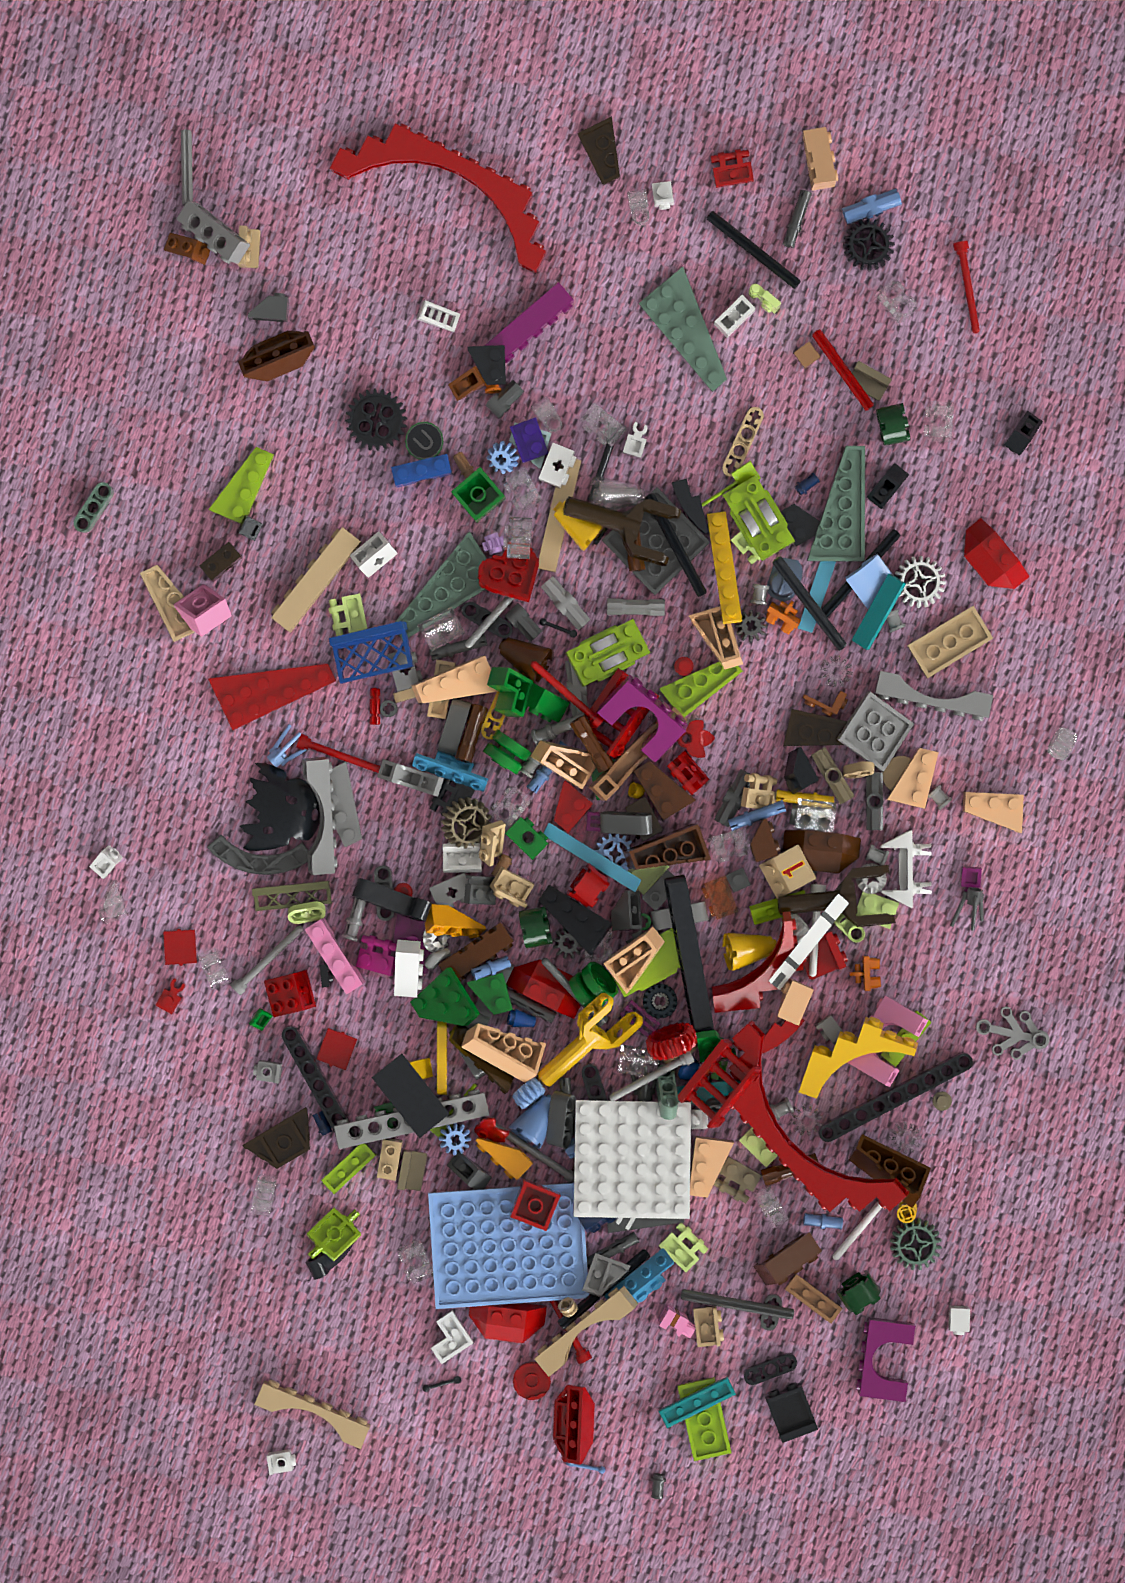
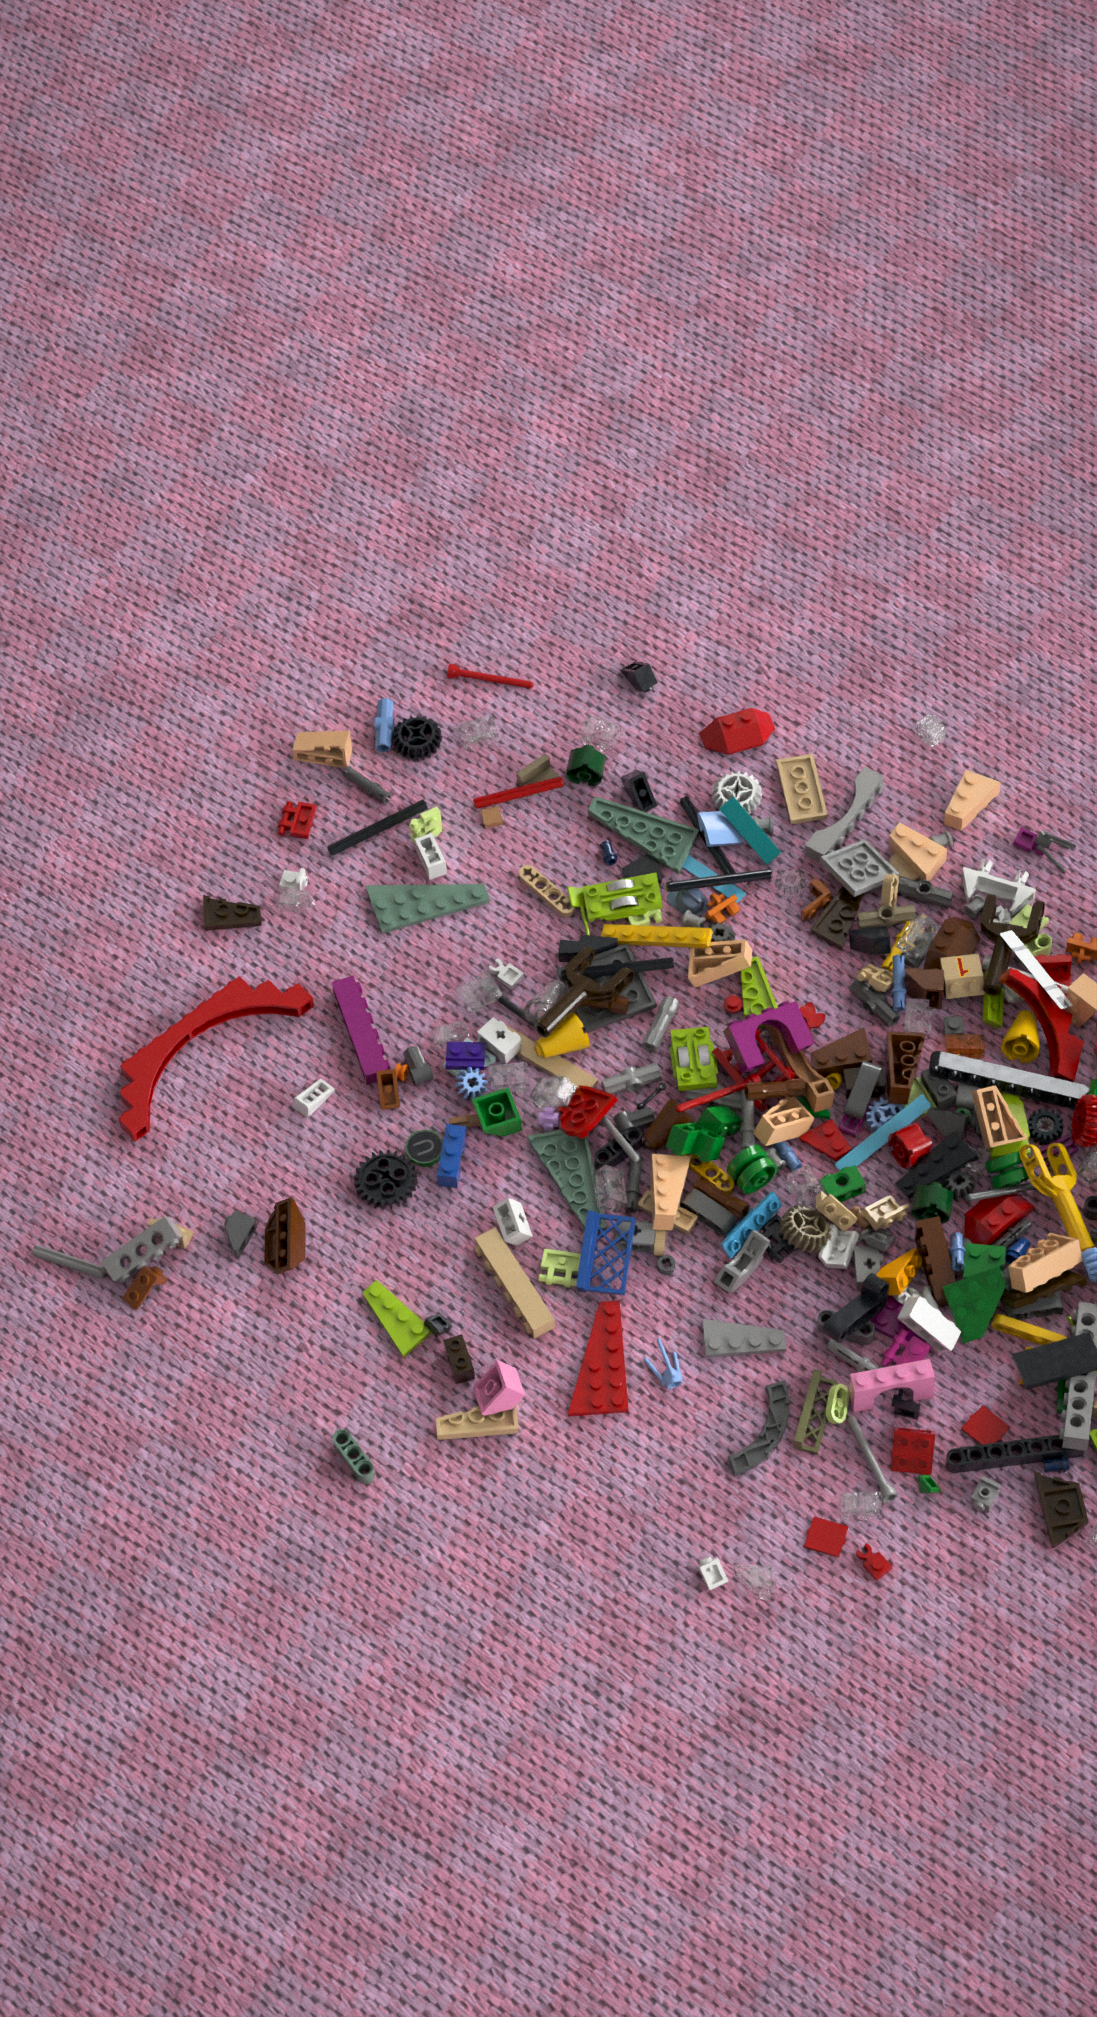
camera: 65 degrees left, 30 degrees down
(278, 813) = (726, 1391): black piece -> none
(305, 743) = (670, 1346): red piece -> none
(321, 855) = (783, 1366): light grey arch -> none
(375, 706) = (659, 1276): red axle -> none
(490, 363) = (379, 1057): black wing -> none
(688, 773) = (838, 1028): red plate -> none

